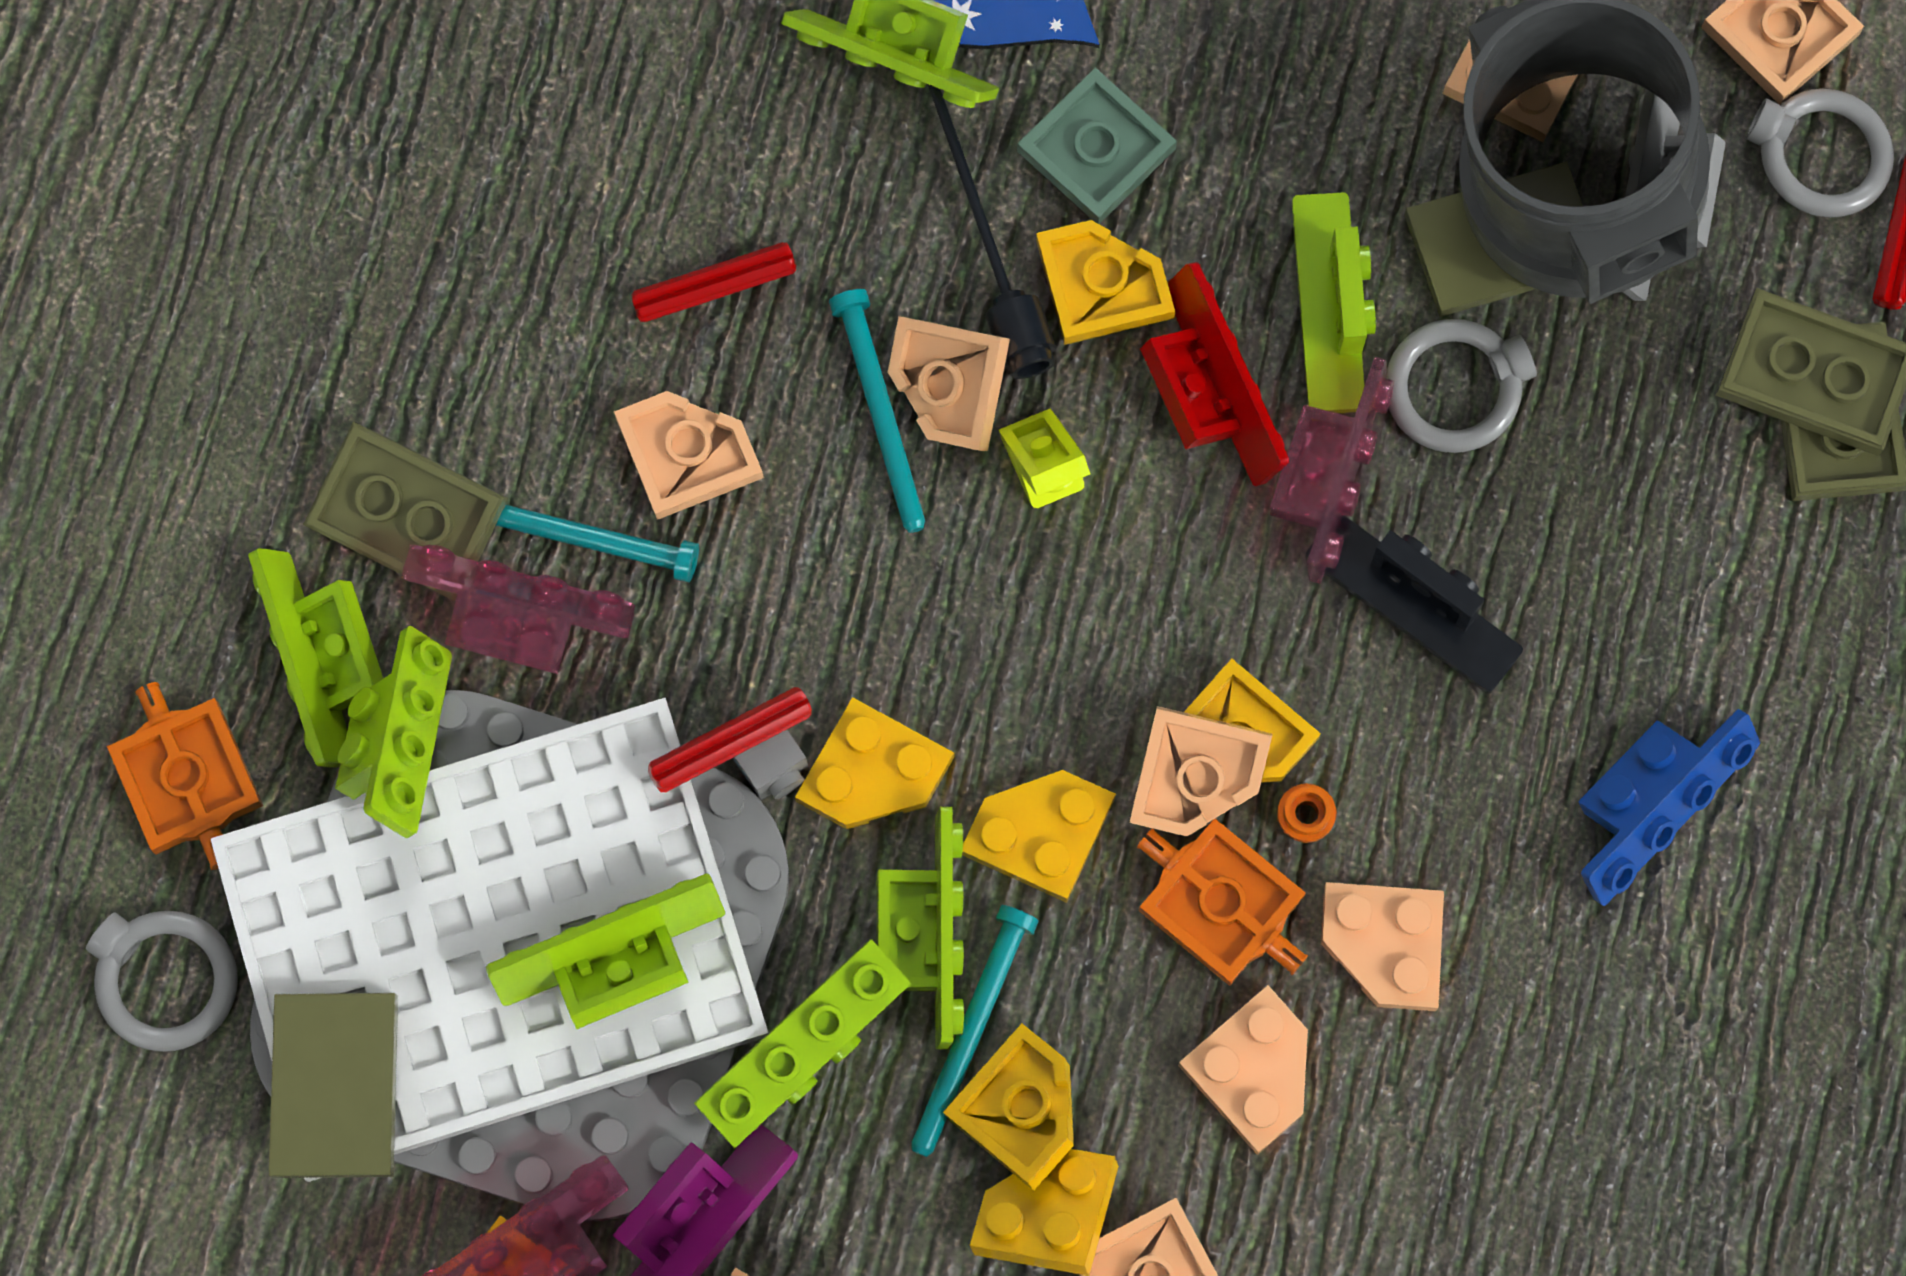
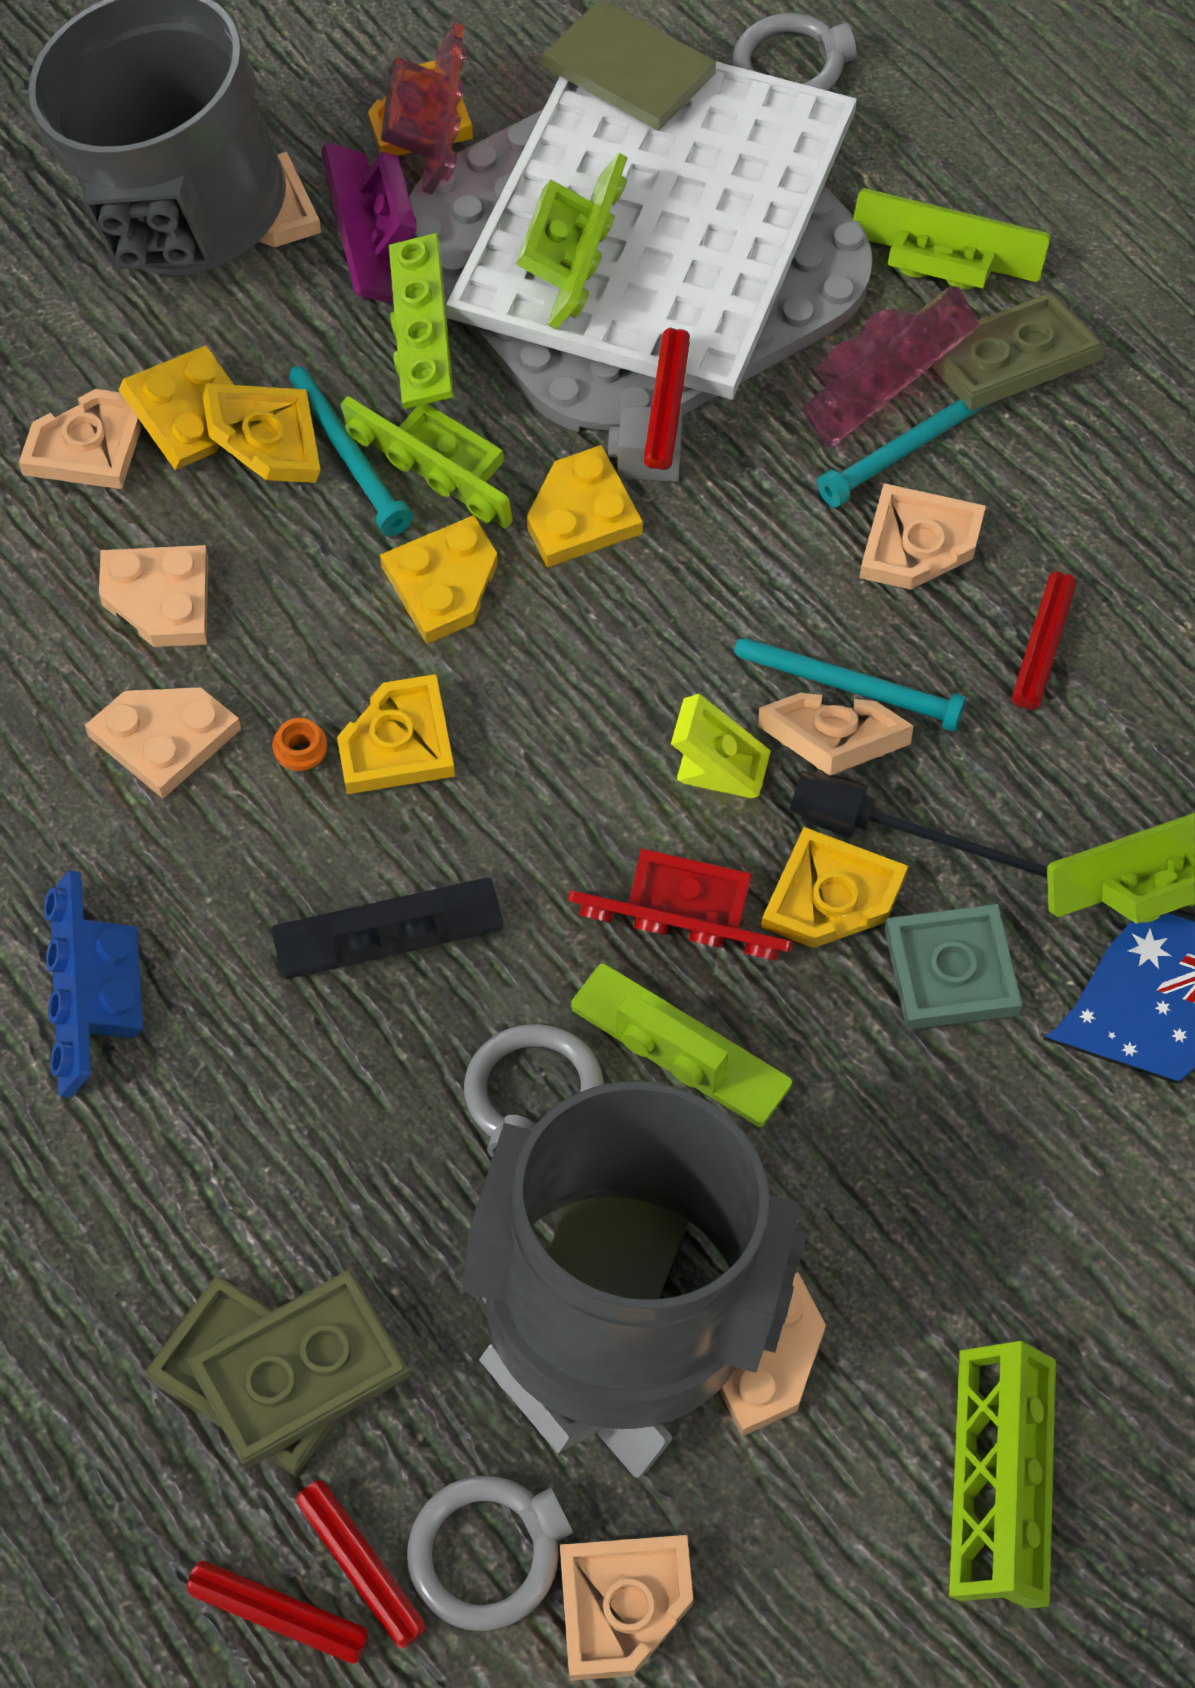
camera: 125 degrees right, 15 degrees down
(183, 774) = (921, 135): orange plate -> none
(396, 733) = (838, 224): lime bracket -> none
(1196, 771) = (389, 674): light nougat plate -> none
(1222, 901) = (287, 645): orange plate -> none
(1322, 468) = (543, 929): clear pink bracket -> none

